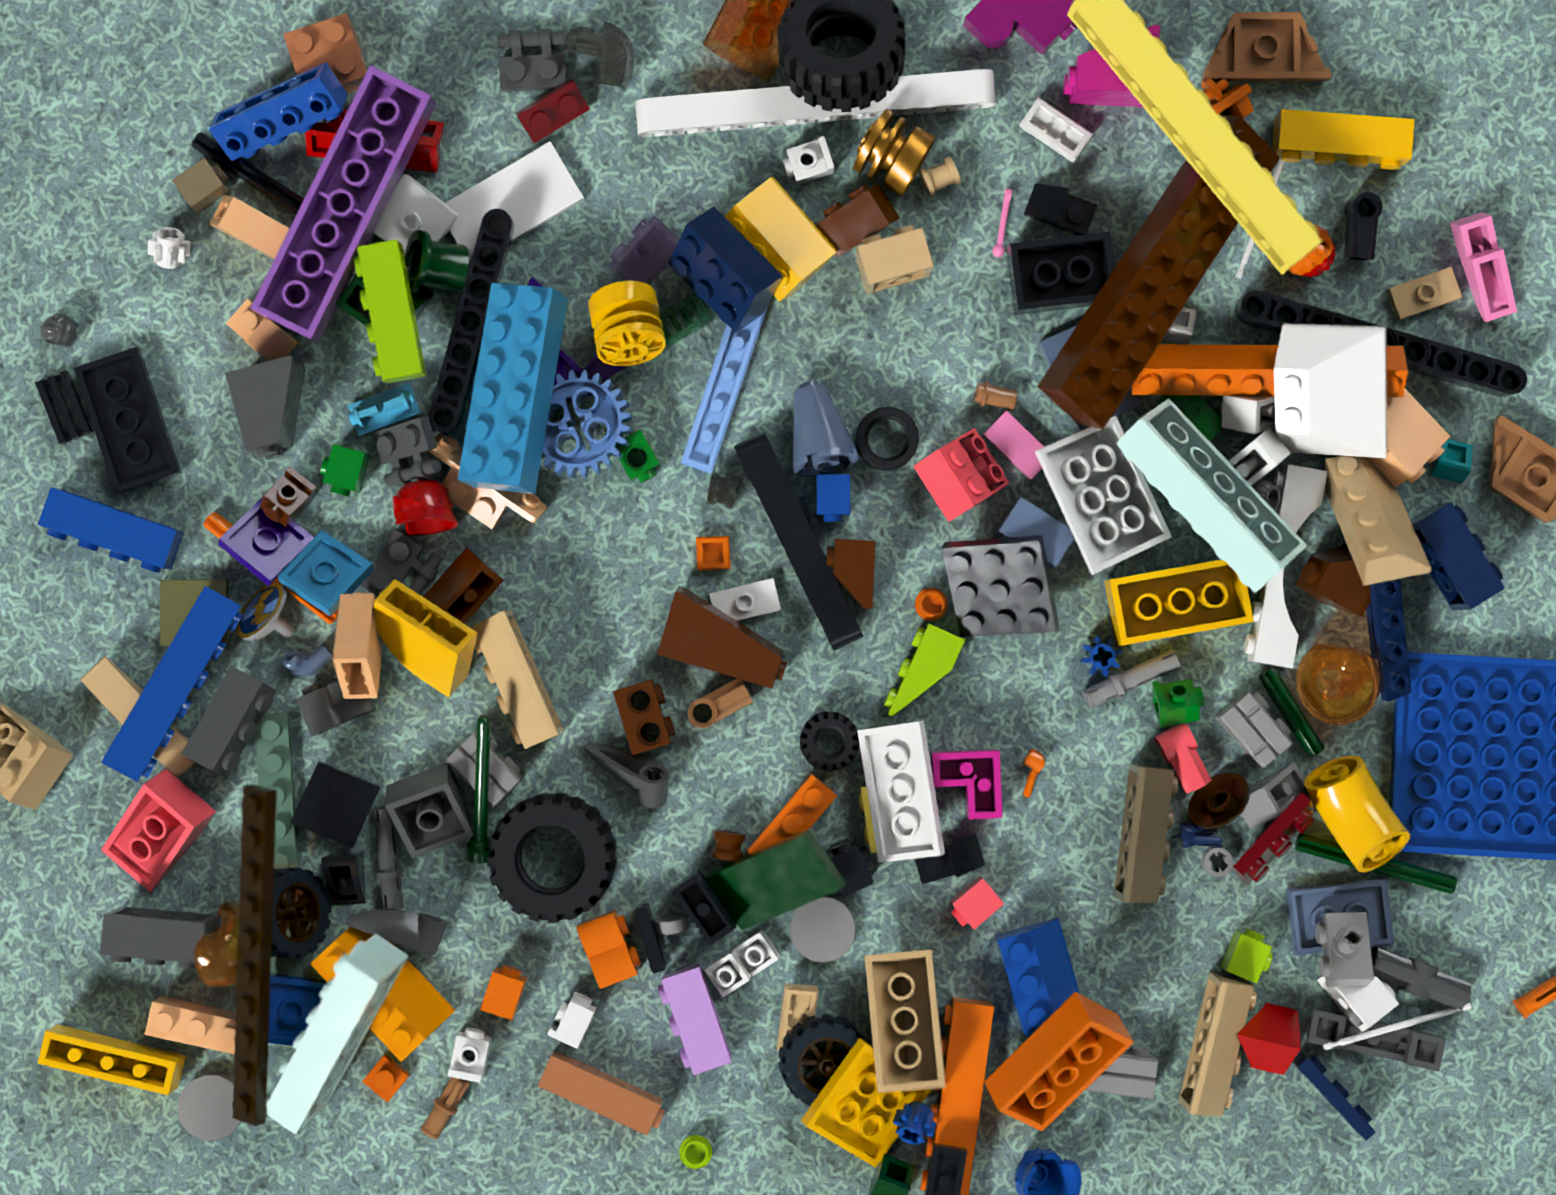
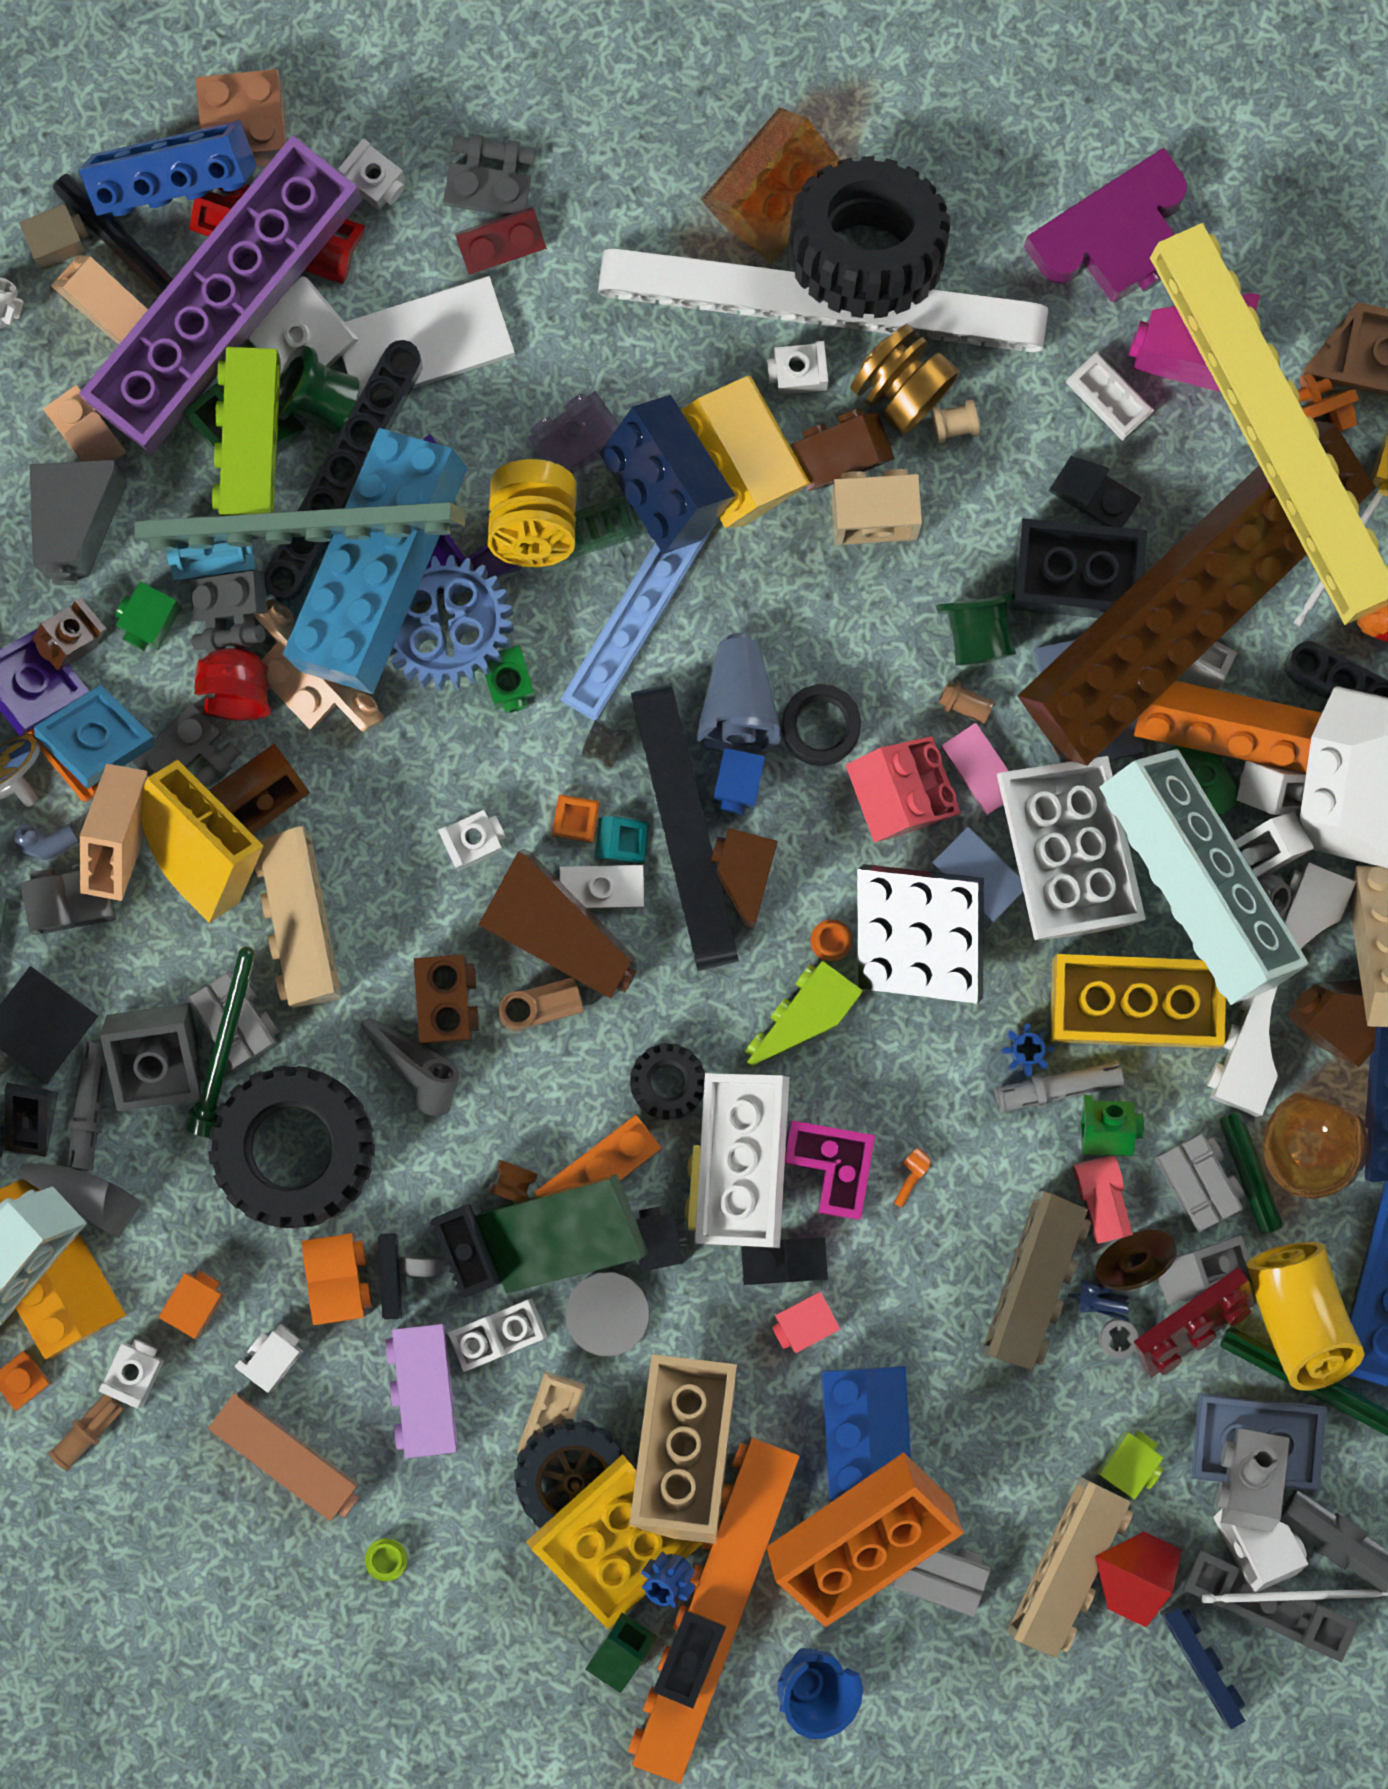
camera: 10 degrees right, 5 degrees down
(450, 91) = (375, 191): none -> white brick
(460, 373) = (314, 525): none -> sand green plate
(612, 52) = (588, 183): clear smoke brick -> none
(623, 588) = (464, 854): none -> white brick
(752, 561) = (621, 839): none -> teal slope
(995, 337) = (980, 629): none -> dark green piece
(999, 250) = (1009, 526): bright pink hinge -> none

